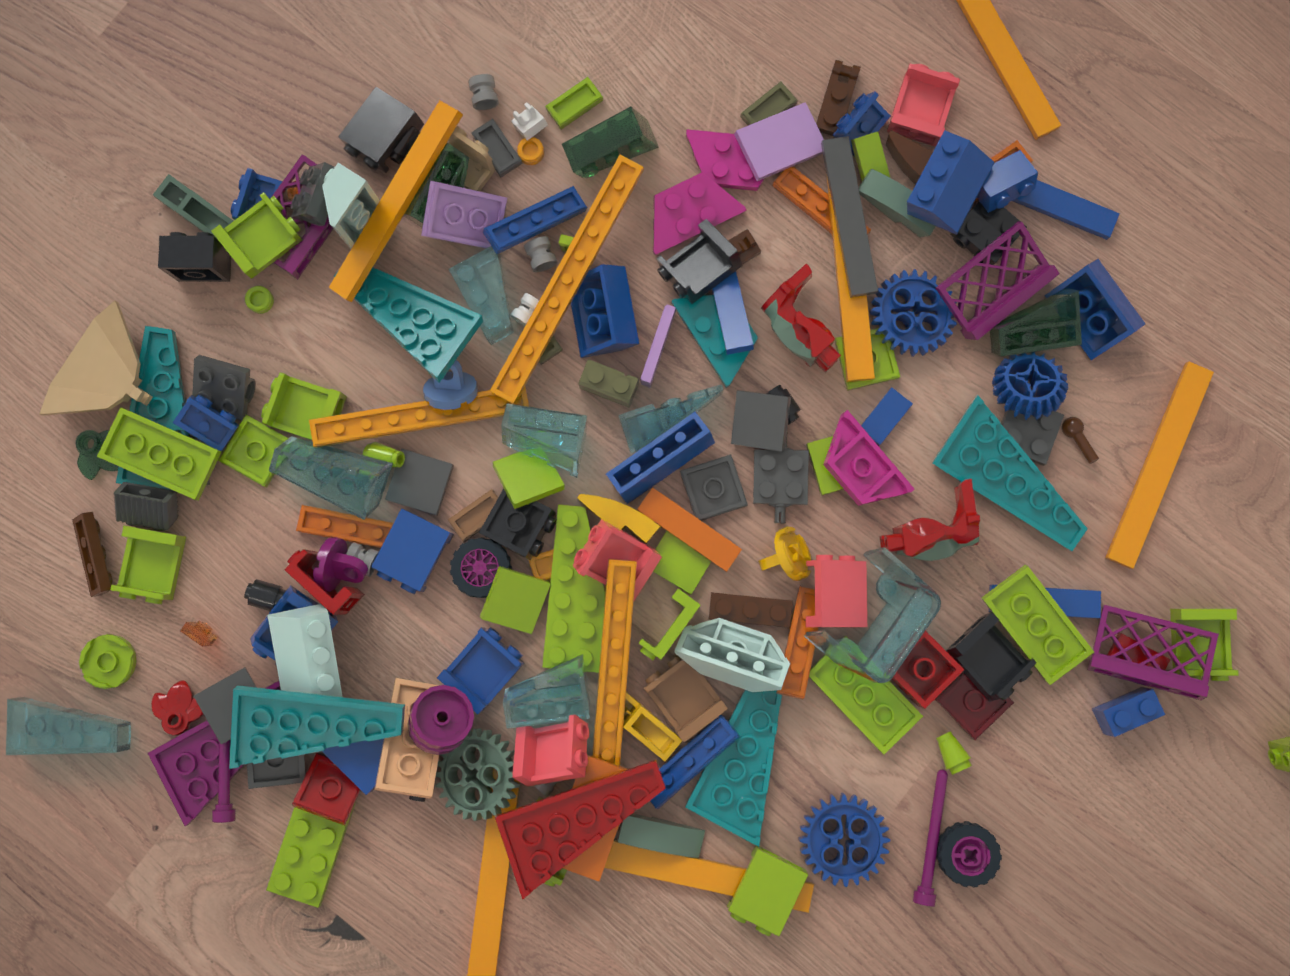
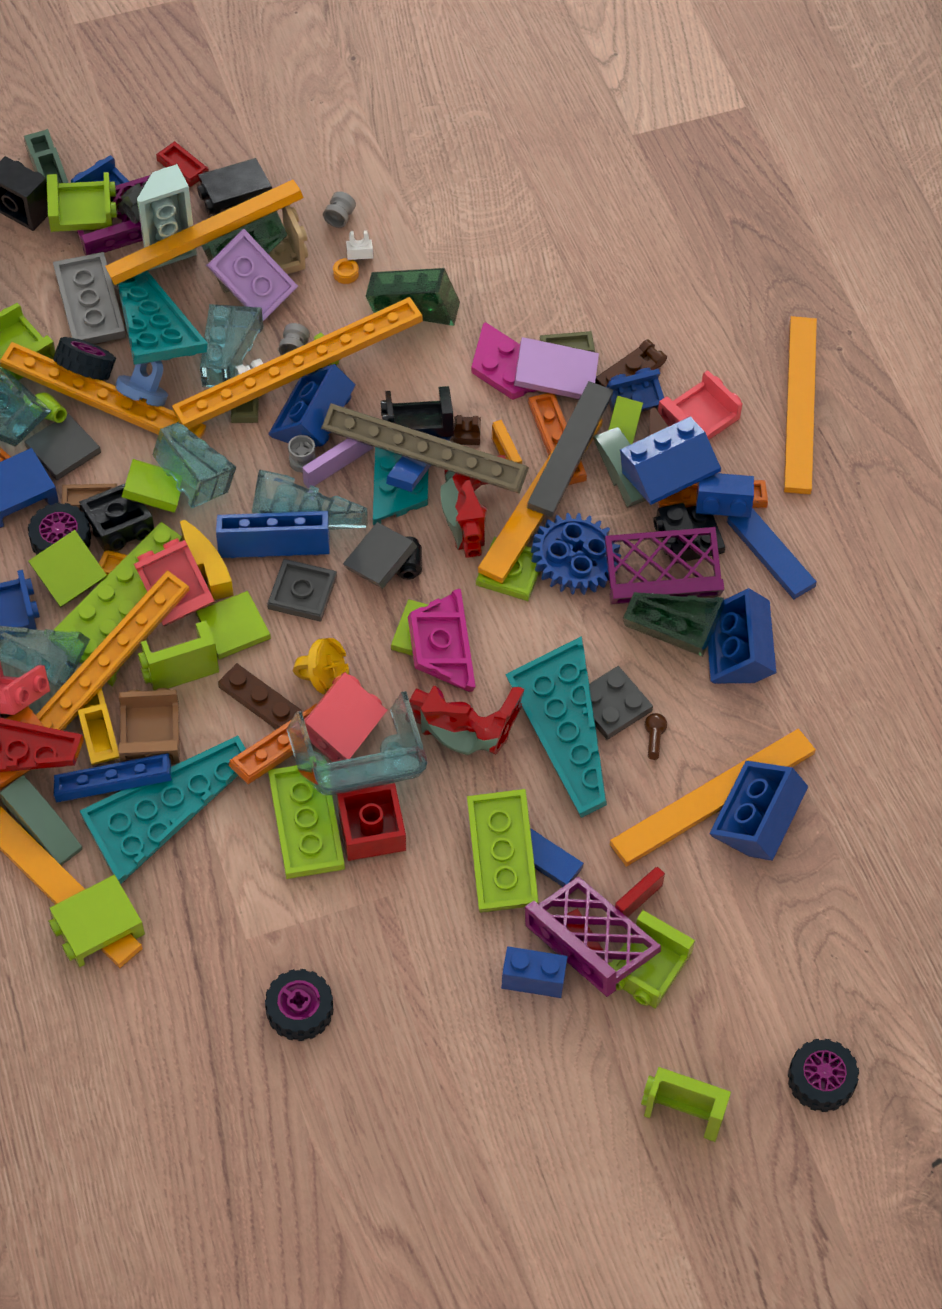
camera: 25 degrees right, 25 degrees down
(259, 299) = (45, 253): lime tile -> none
(309, 129) = (187, 163): none -> red tile
(334, 324) = (89, 299): none -> light grey plate
(380, 392) = (84, 358): none -> black wheel
(500, 150) = (320, 255): dark grey tile -> none
(534, 220) = (304, 311): blue tile -> none
(574, 103) = (407, 257): lime tile -> none
(608, 383) = (272, 455): olive brick -> none
(626, 357) = (301, 452): none -> light grey wheel
(687, 205) = (440, 368): dark pink wing -> none
(689, 529) = (255, 603): orange tile -> none
(734, 655) = (210, 707): light aqua wedge -> none
(739, 301) = (425, 448): none -> dark tan tile
(781, 479) = (366, 613): dark grey plate -> none
(790, 247) = (504, 442): none -> light orange tile
(868, 838) = (174, 910): blue gear -> none
(886, 415) = (493, 620): blue tile -> none
(925, 892) = (234, 1014): magenta piece -> none
(953, 753) = (348, 915): lime cone -> none
(970, 707) = (402, 887): dark red tile -> none
(990, 659) = (439, 850): black panel -> none
(1043, 376) = (635, 658): blue gear -> none
(1162, 591) = (641, 892): none -> red tile
(1208, 458) = (759, 809): none -> blue slope

